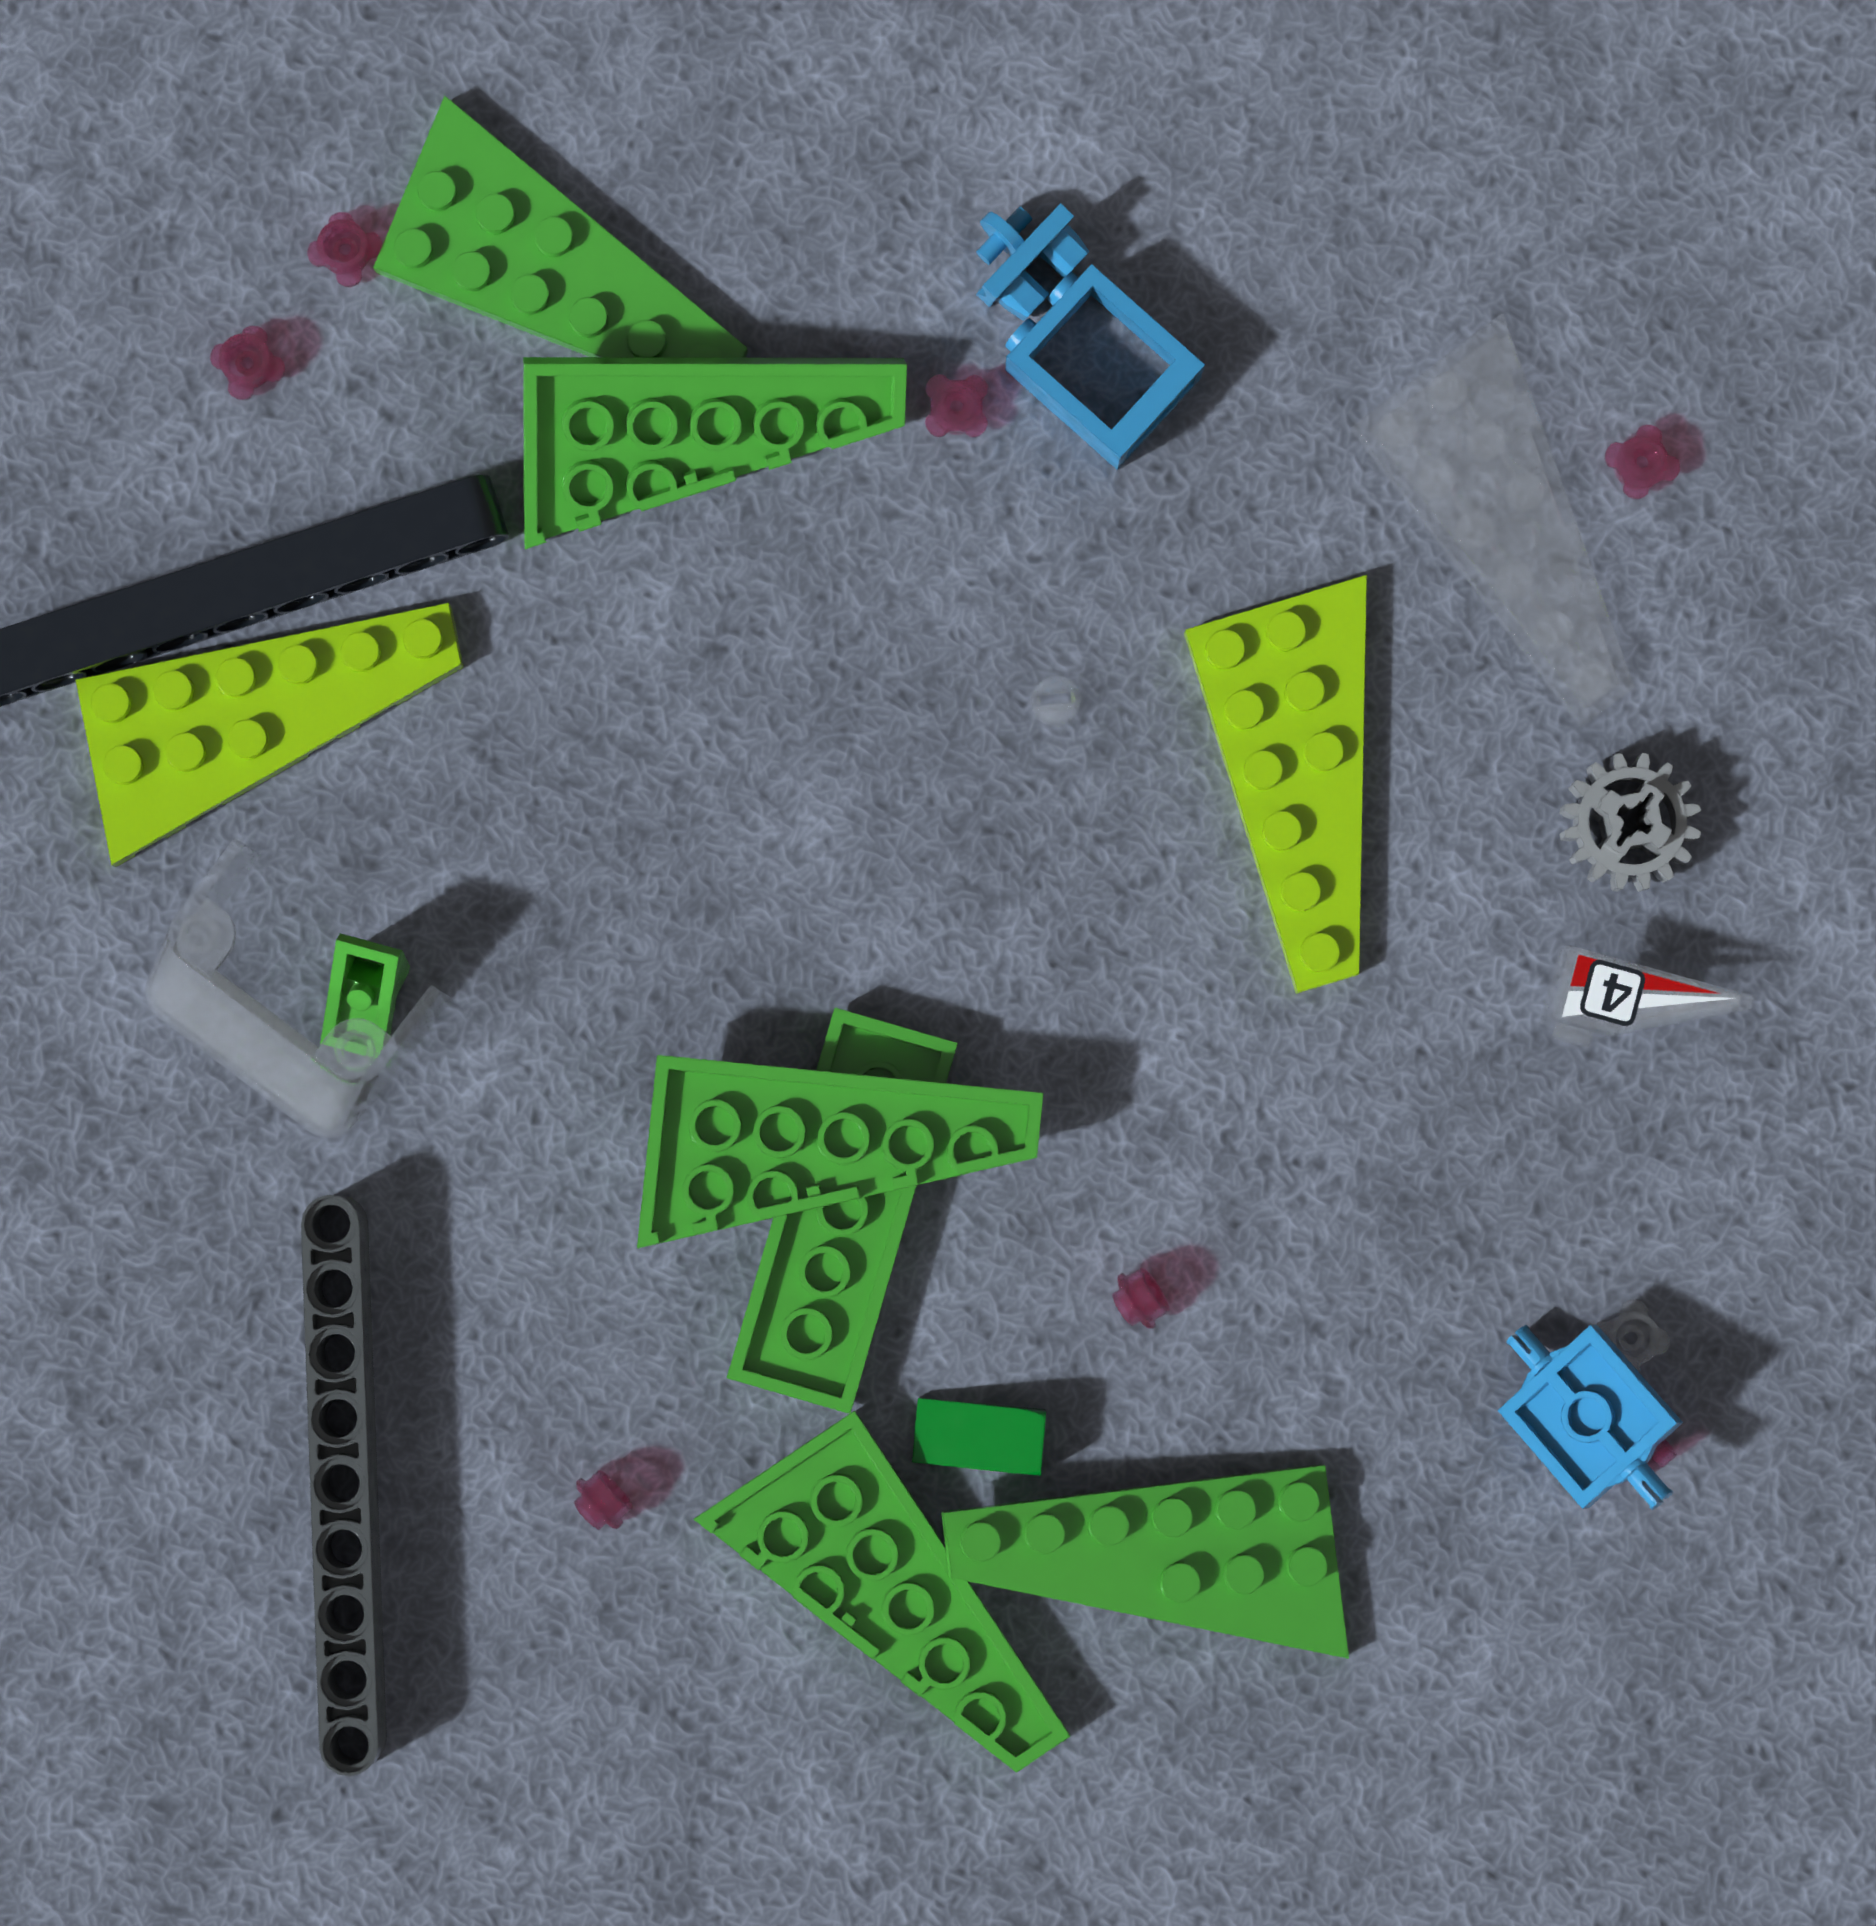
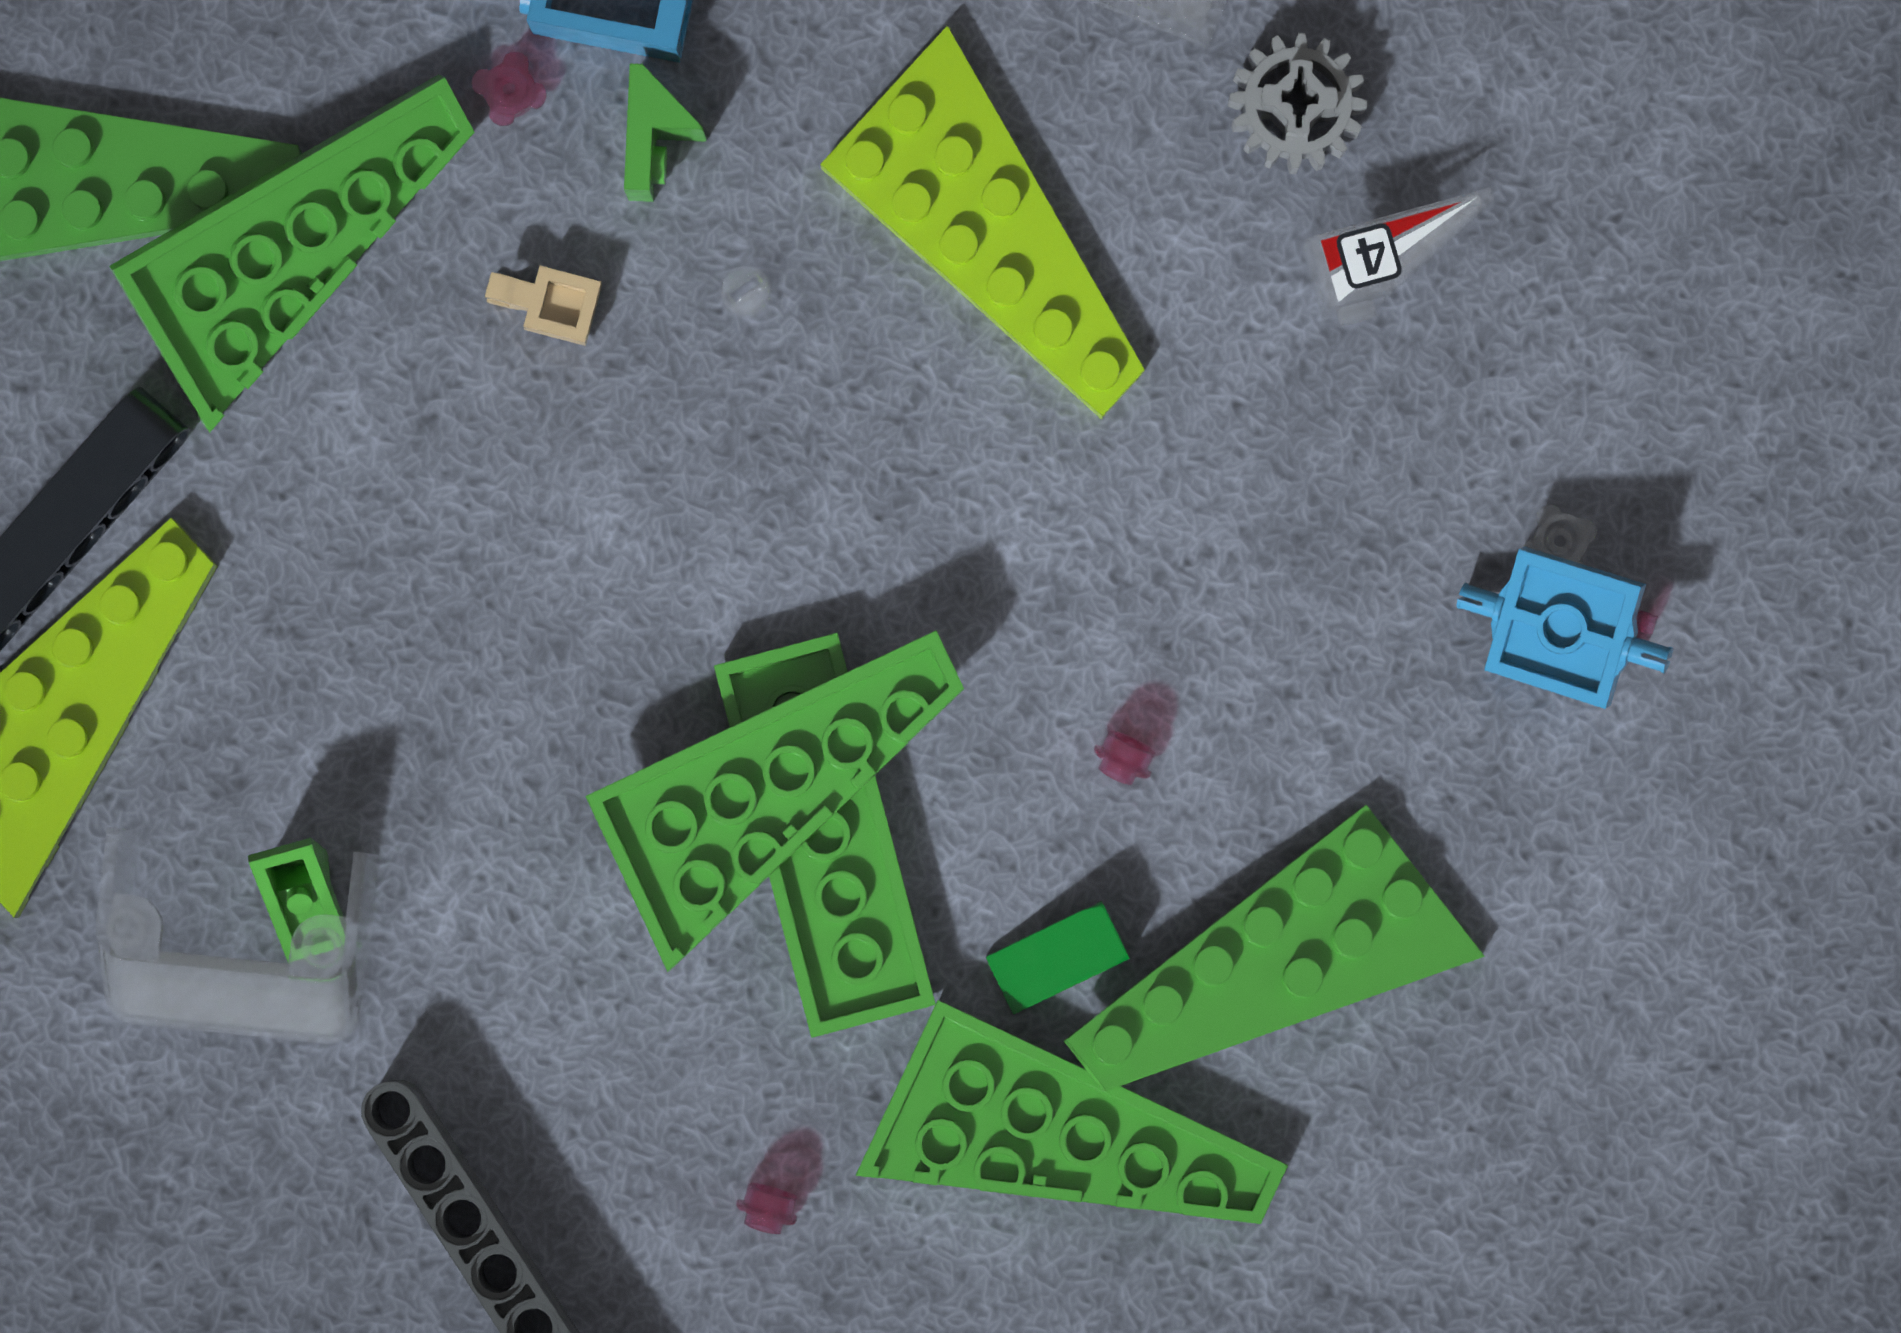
camera: 35 degrees left, 0 degrees up
(885, 615) = (555, 305): none -> tan plate
(1063, 502) = (651, 117): none -> bright green slope

